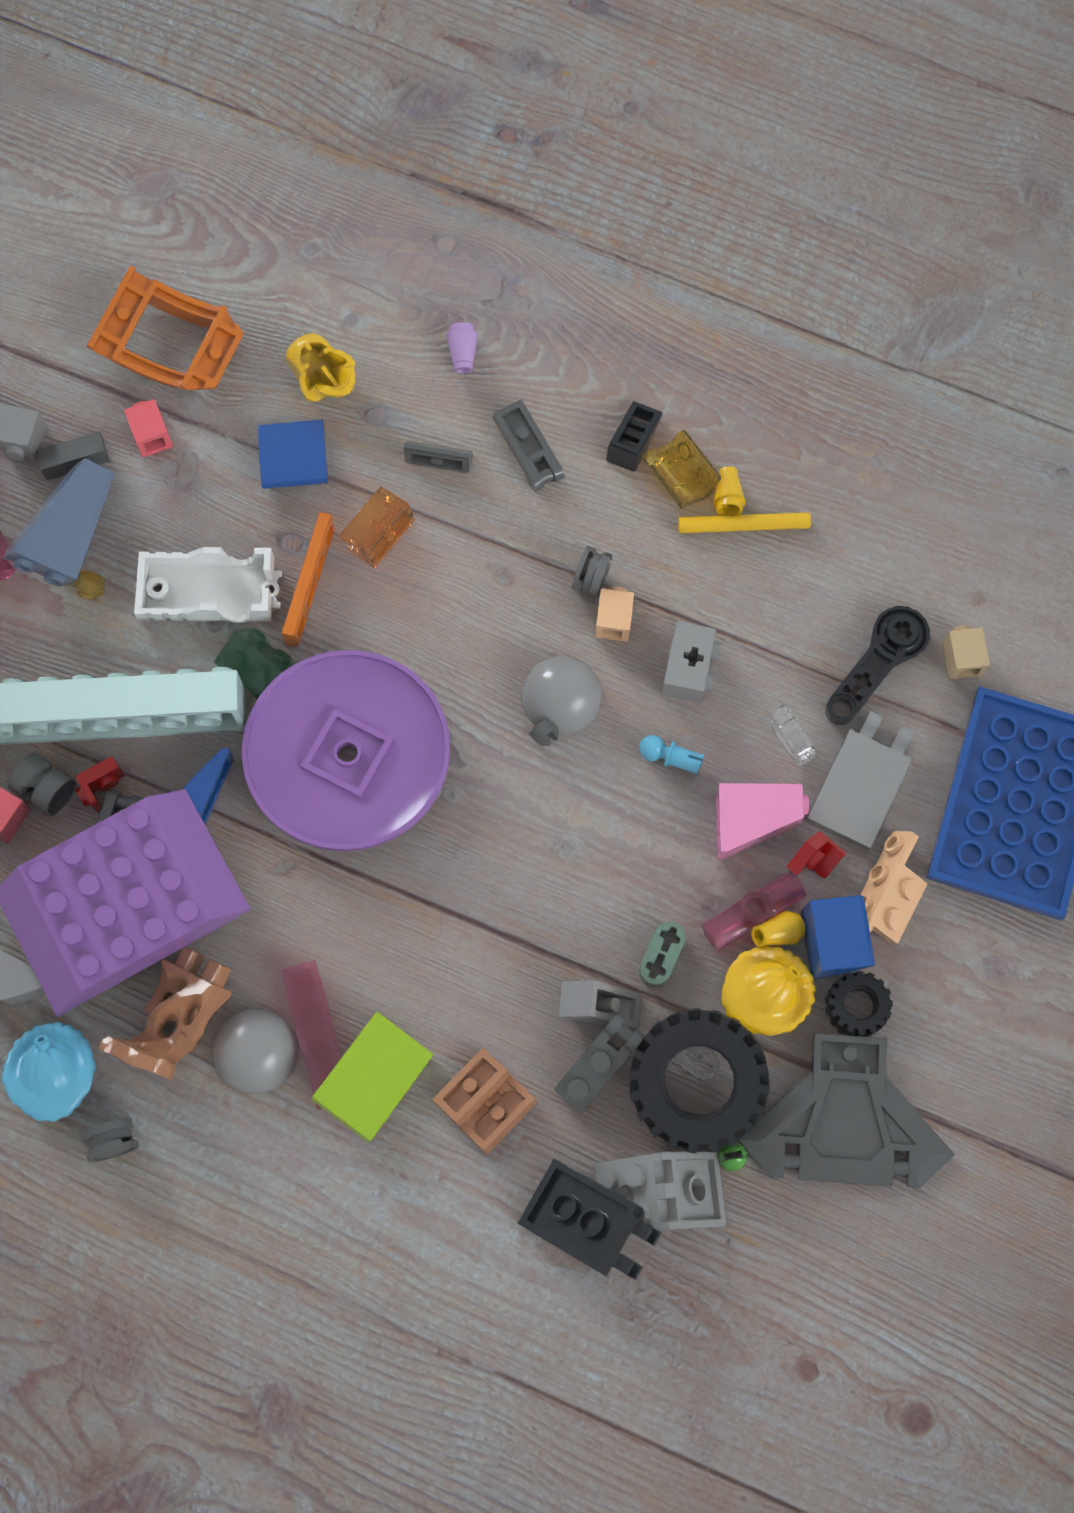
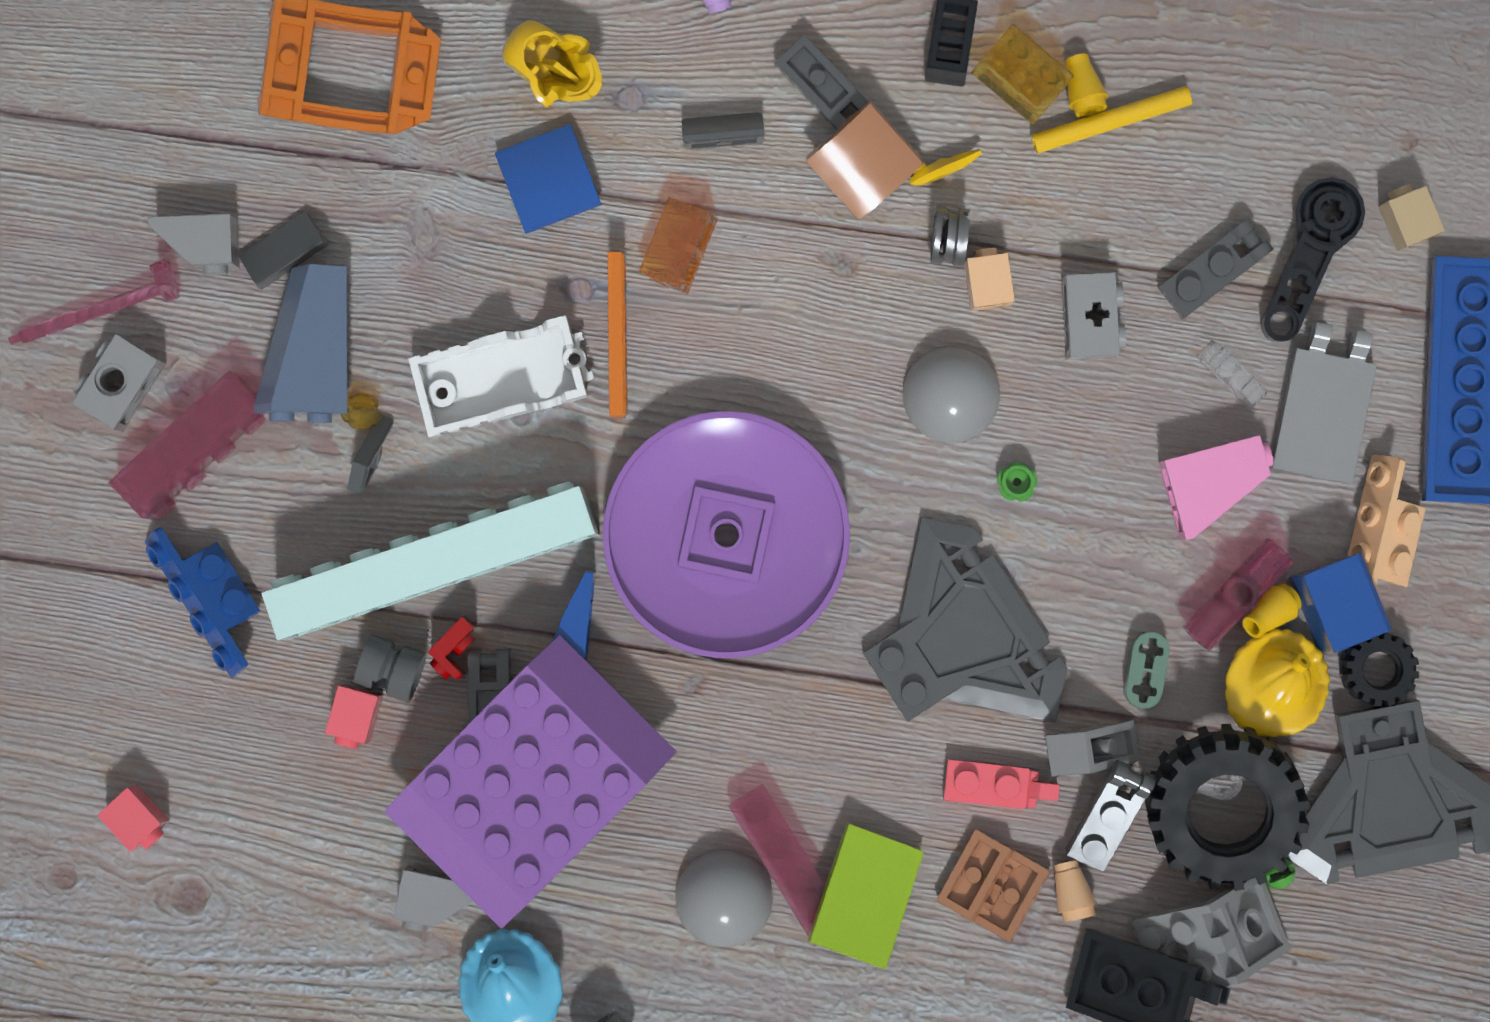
camera: 10 degrees left, 15 degrees up
(79, 619) = (368, 456): none -> dark grey tile
(148, 427) = (363, 192): coral brick -> none
(191, 1007) = (645, 875): nougat hips -> none
(253, 659) = (586, 453): clear green bracket -> none
(510, 1016) = (995, 785): none -> coral hinge
(519, 887) = (965, 635): none -> dark grey plate
(541, 498) = (864, 160): none -> nougat slope
(541, 731) = (942, 449): dark grey hinge -> none
(550, 1125) = (1073, 892): none -> light nougat cone
(595, 766) = (1024, 490): none -> bright green plate
(599, 524) = (943, 167): none -> yellow bar
(653, 748) = (1076, 432): medium azure pin -> none
(798, 653) = (1214, 269): none -> dark grey plate
(818, 855) = (1294, 511): red bracket -> none

